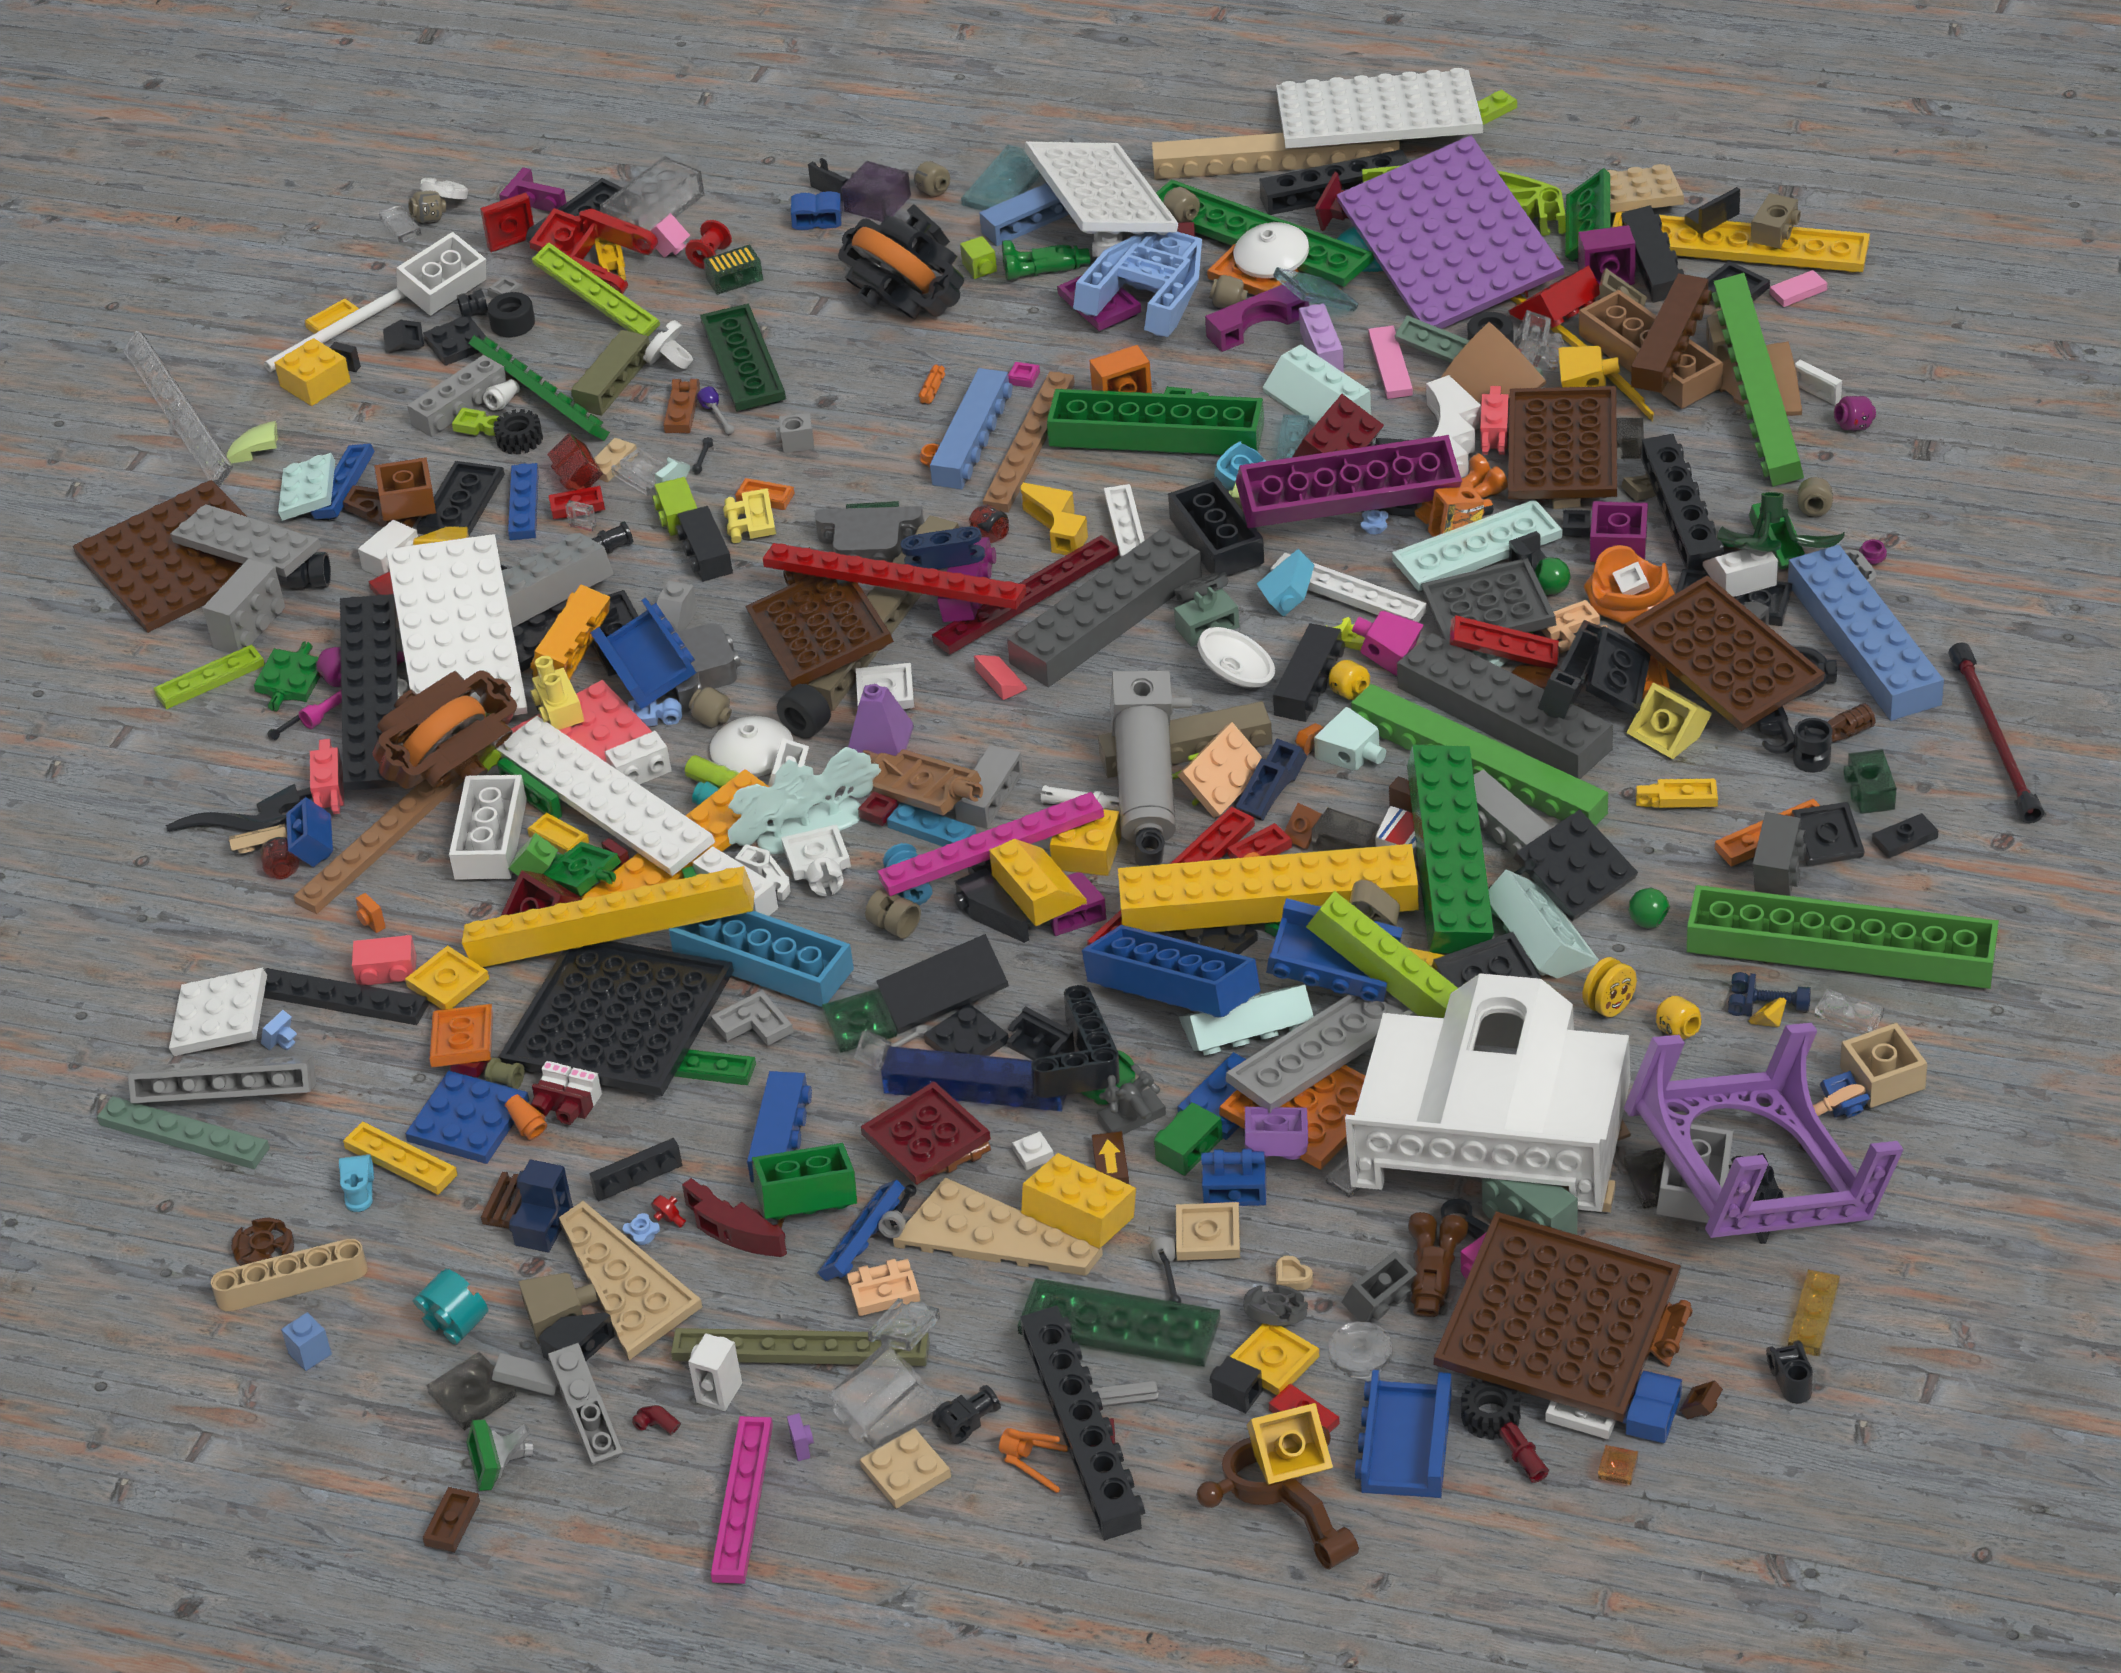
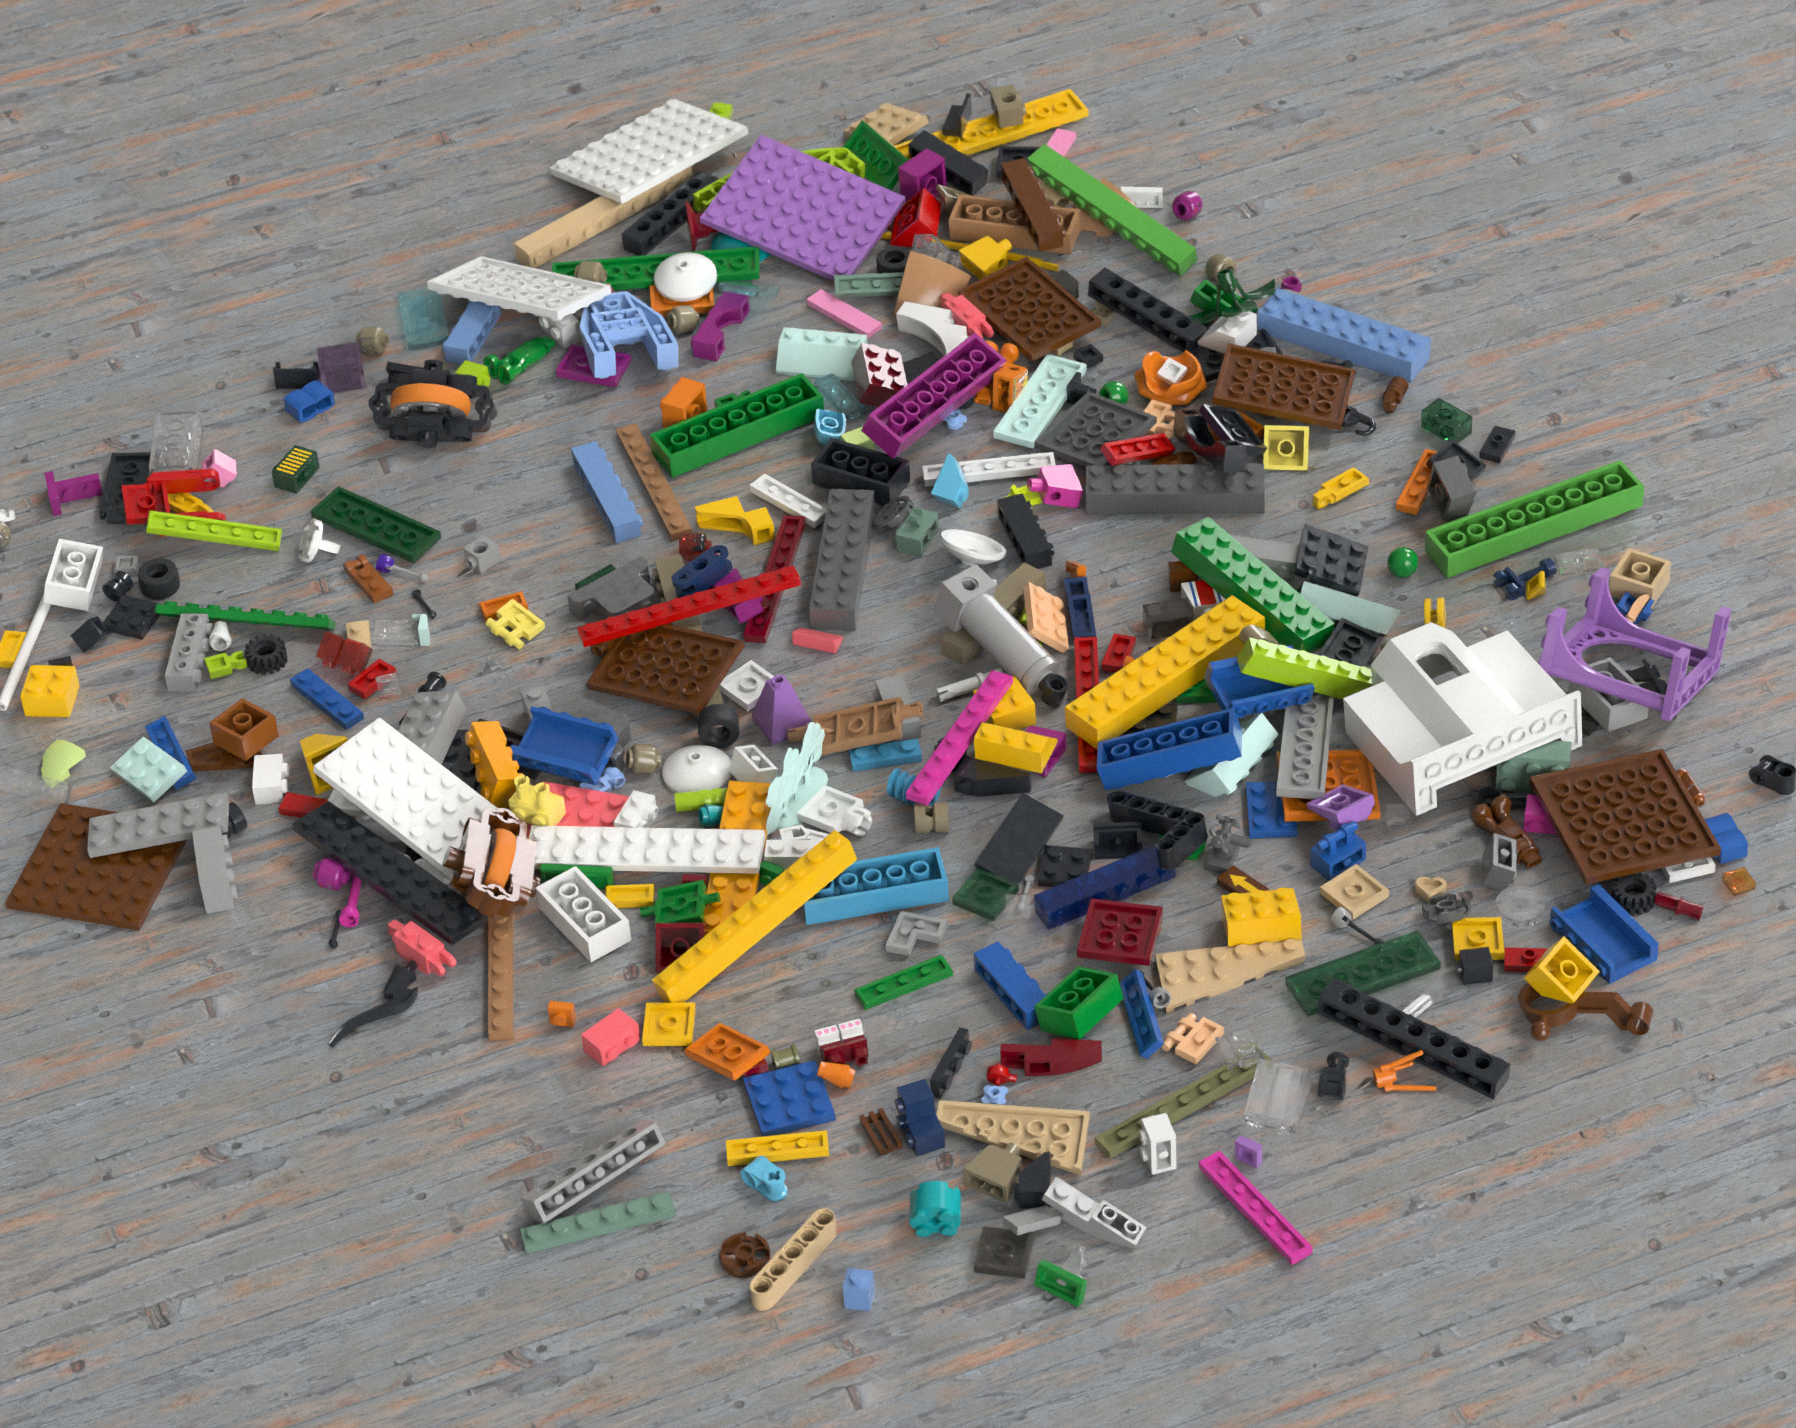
camera: 40 degrees left, 0 degrees up
(209, 676) = (231, 933): lime tile -> none
(218, 1011) = (530, 1134): white plate -> none
(246, 841) = (414, 1011): tan plate -> none
(277, 860) = (447, 1016): clear red head -> none
(279, 1032) = (592, 1122): light blue tile -> none
(288, 676) = (296, 899): green plate -> none
(309, 832) = (454, 986): blue brick -> none
(344, 997) = (602, 1077): black plate -> none
(451, 1519) = (1085, 1331): reddish brown plate -> none
(462, 496) = (288, 721): black tile -> none
(507, 221) = (82, 514): red tile -> none
(533, 856) = (643, 915): bright green brick -> none
(611, 372) = (288, 579): olive brick -> none
(619, 1014) = (820, 978): black plate -> none
(653, 1416) = (1141, 1194): dark red arm -> none
(672, 498) = (453, 644): lime brick -> none
(703, 543) = (505, 658): black brick -> none
(713, 237) = (255, 453): red hose -> none
(877, 808) = (838, 761): dark red plate -> none
(905, 1468) = (1330, 1131): tan plate -> none
(927, 453) = (597, 522): orange plate -> none
(931, 384) = (538, 477): orange axle -> none
(1024, 374) = (598, 436): dark pink tile -> none
(1033, 1150) = (1188, 908): white plate -> none
(1187, 1137) = (1280, 846): green brick -> none
(1301, 824) = (1132, 624): dark orange bracket -> none
(1320, 334) = (776, 314): lavender brick -> none
(1347, 678) = (1057, 523): yellow head -> none
(1349, 741) = (1103, 559): light aqua torso -> none
(1522, 775) = (1160, 529): bright green brick -> none
(1618, 525) = (1125, 346): magenta brick -> none
(1678, 1017) = (1490, 616): yellow head -> none
(1701, 1400) = (1745, 818): reddish brown plate -> none
(1812, 745) = (1390, 417): black wheel -> none
(1814, 1311) = (1746, 736): clear yellow plate -> none
(2026, 803) = (1547, 388): dark red hose -> none

